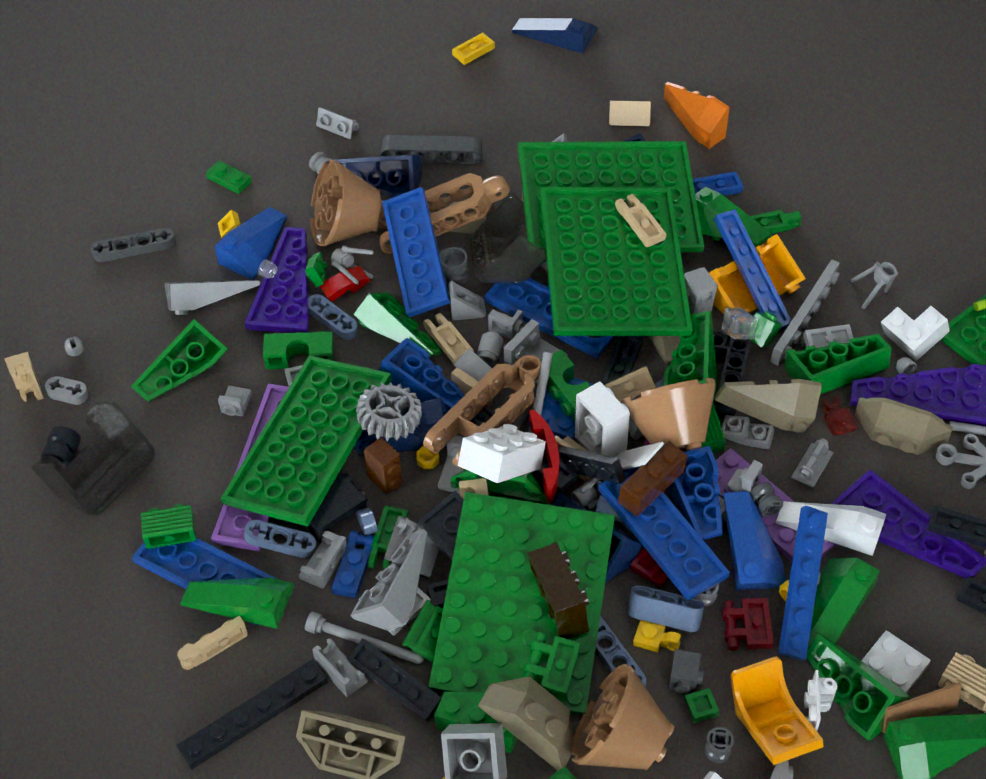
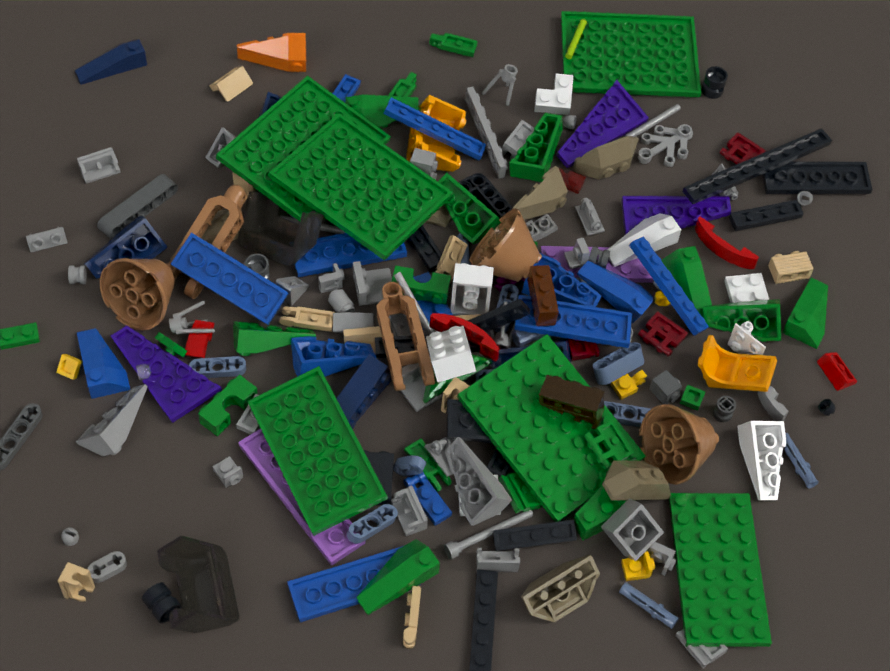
camera: 55 degrees left, 5 degrees up
(168, 526) = (302, 578): green brick -> none
(183, 359) = (163, 477): green wedge -> none
(383, 465) = (380, 425): reddish brown brick -> none
(390, 405) = (366, 392): light grey gear -> none
(427, 459) = (389, 399): yellow tile -> none
(442, 98) = (98, 165): none -> light grey hinge
(473, 48) = (73, 115): yellow plate -> none
(638, 456) = (519, 289): white piece -> none
(641, 221) = (351, 146): tan hinge -> none
(739, 323) = (468, 167): clear brick -> none
(766, 328) = (479, 160): brick -> none
(876, 219) = (454, 44): none -> green hinge
(924, 705) = (785, 309): medium nougat piece -> none
(926, 627) = (723, 249): none -> red slope

